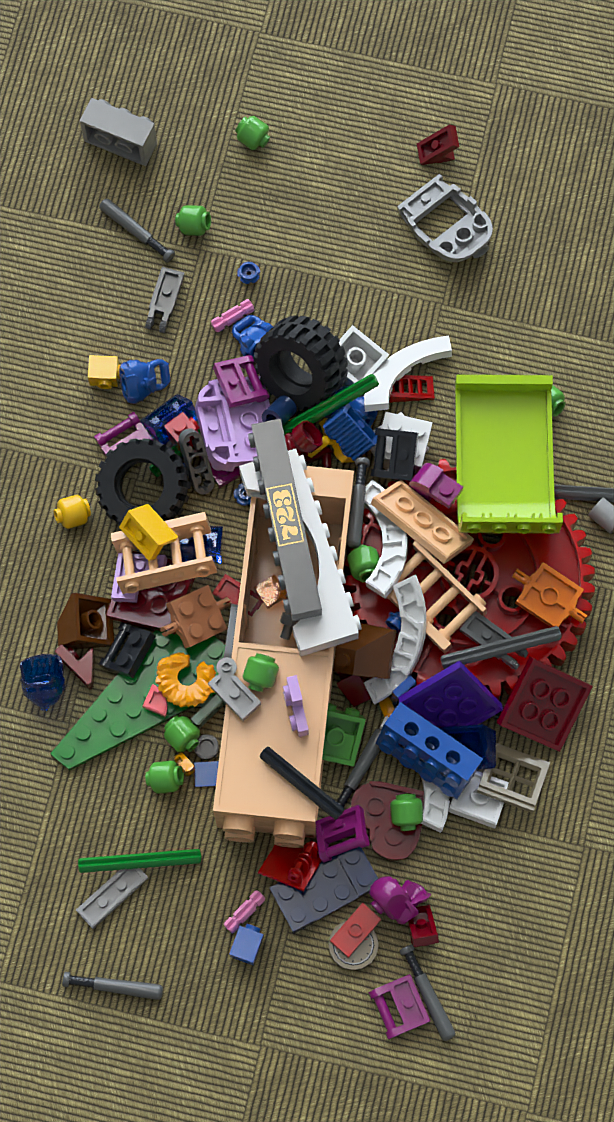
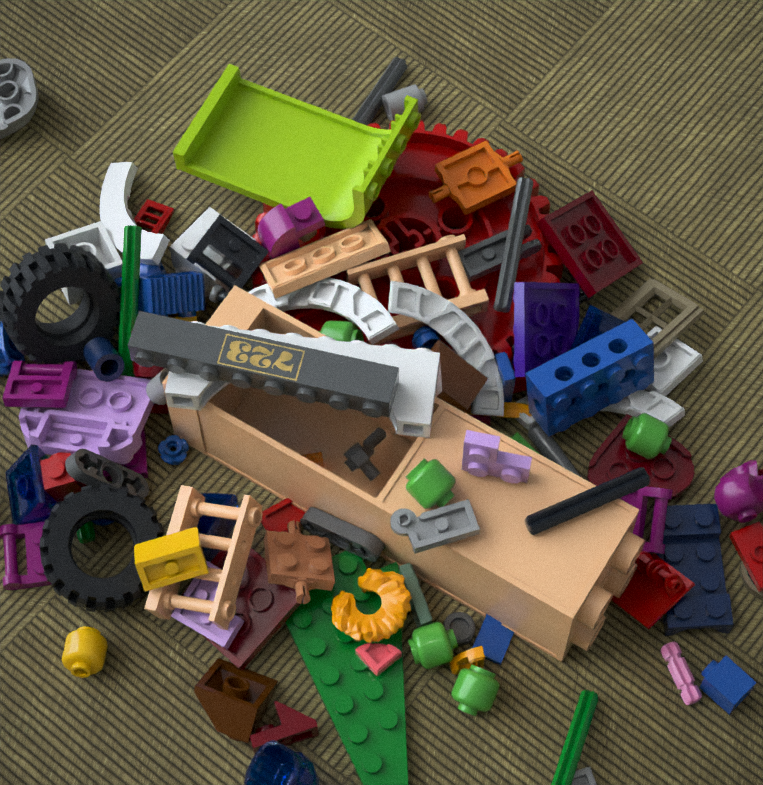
camera: 65 degrees left, 10 degrees down
(131, 653) = (304, 659): black plate -> none

